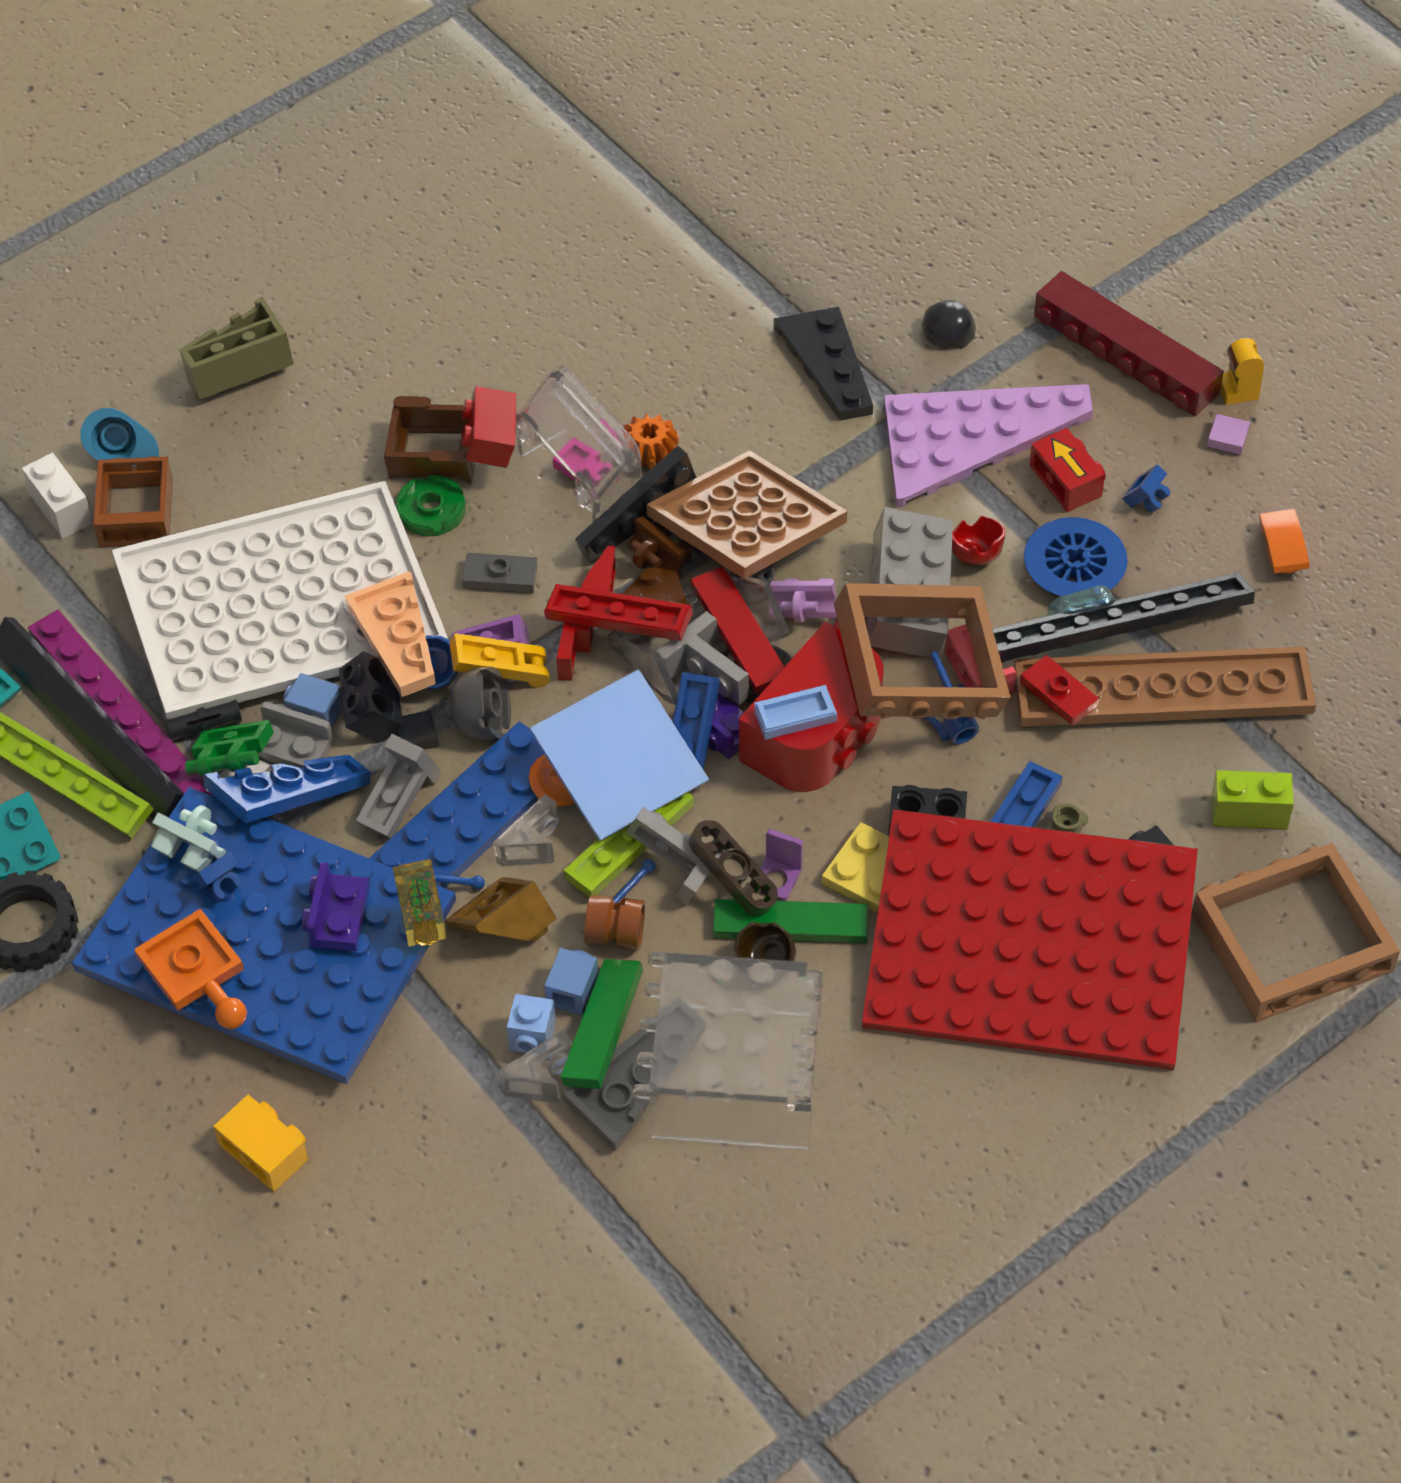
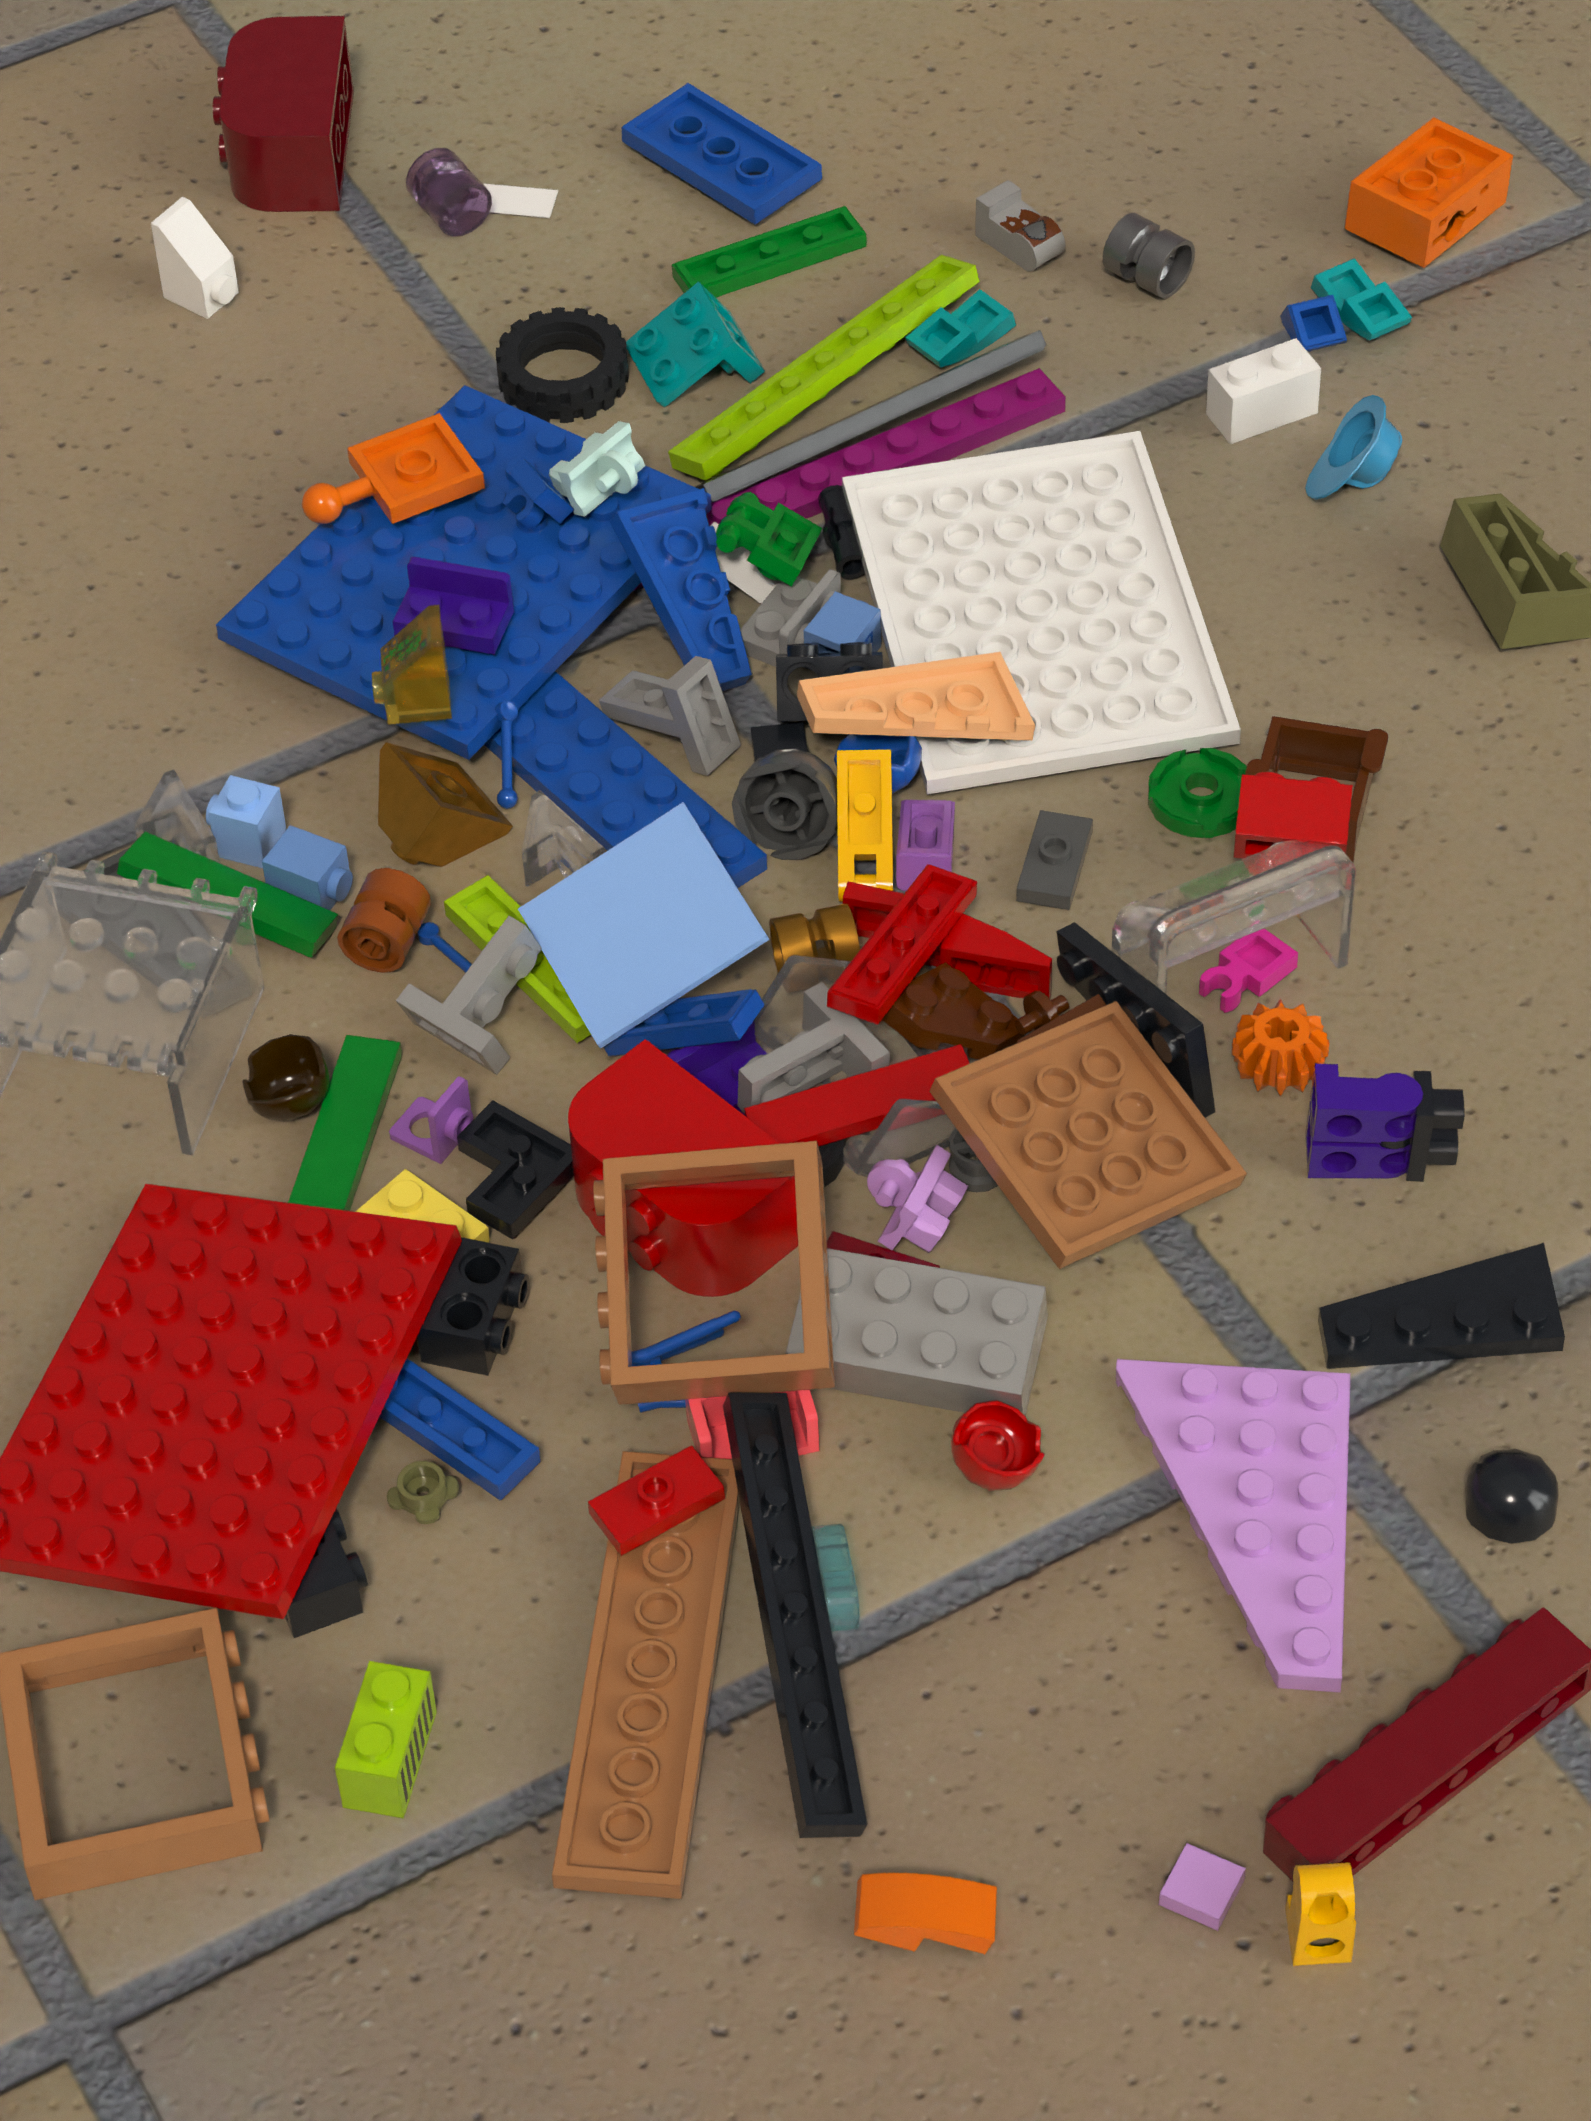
camera: 100 degrees right, 5 degrees down
(132, 527) = (1246, 439): dark orange window -> none
(261, 1142) = (164, 560): yellow brick -> none
(599, 667) = (797, 935): none -> pearl gold wheel
(714, 385) = (1380, 1125): none -> dark purple hips
(731, 883) = (424, 1017): dark brown beam -> none
(795, 712) = (632, 1099): light blue tile -> none
(813, 806) = (525, 1163): none -> black plate
(1048, 556) = (949, 1536): blue piece -> none
(1067, 469) = (1139, 1606): red brick -> none
(1145, 489) = (1083, 1719): blue tile -> none

